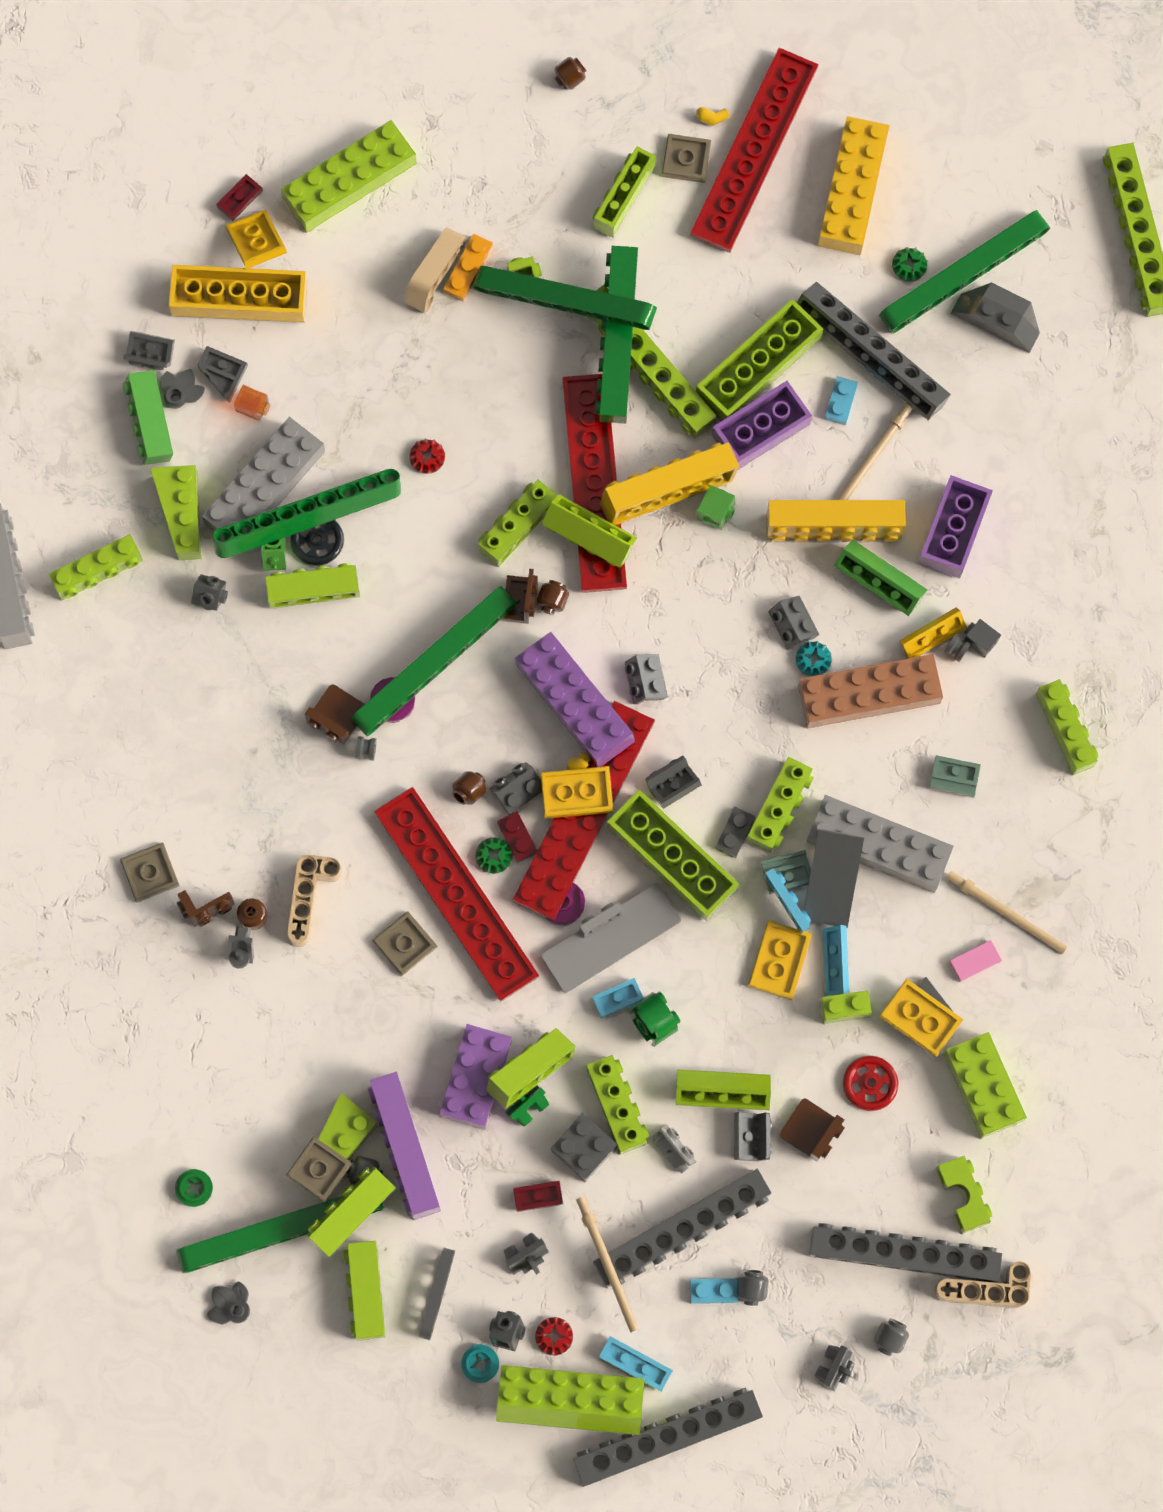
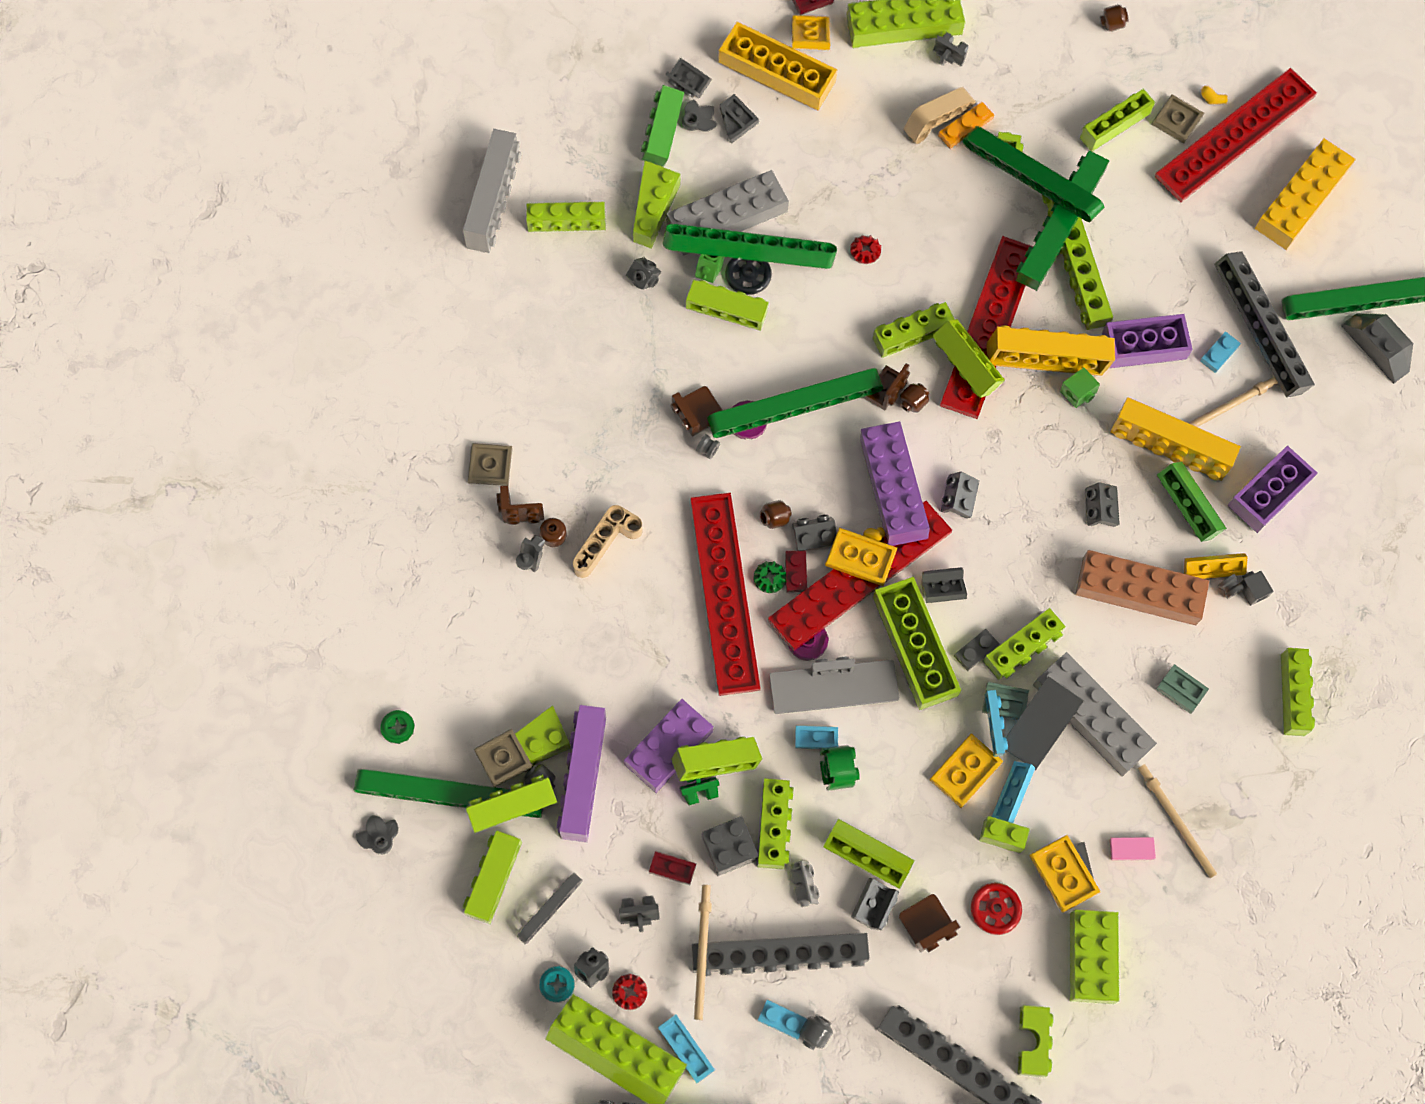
camera: 25 degrees right, 5 degrees down
(252, 403) = (747, 150): clear orange brick -> none
(405, 943) = (664, 613): dark tan tile -> none
(413, 193) = (949, 51): none -> dark grey hips
(760, 360) = (1169, 290): lime brick -> none
(804, 663) = (1103, 532): teal gear -> none
(903, 271) = (1316, 274): green gear -> none

